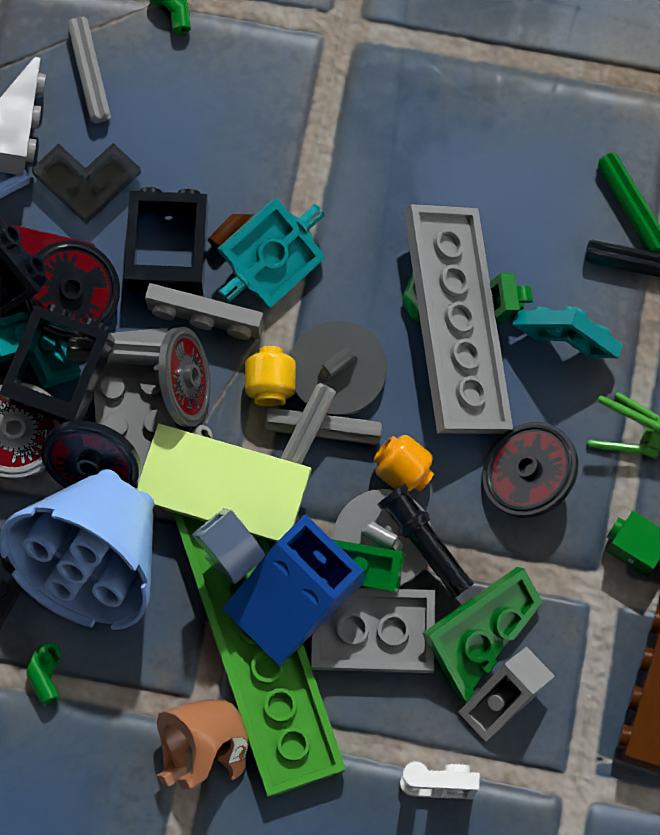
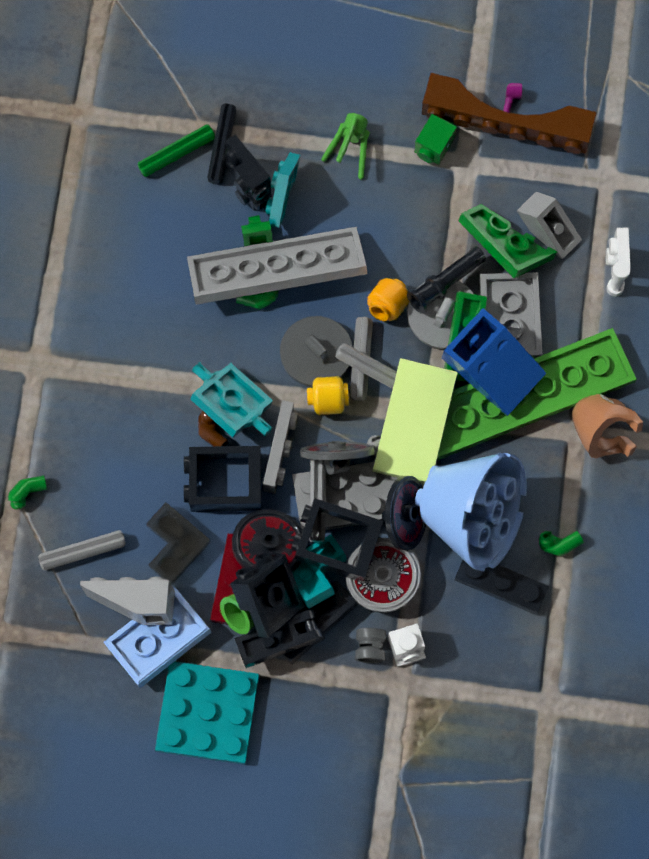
camera: 90 degrees left, 0 degrees up
(229, 545) = (468, 404): sand blue brick -> none
(530, 470) = (387, 212): black shield -> none
(584, 285) = (251, 179): none -> black plate

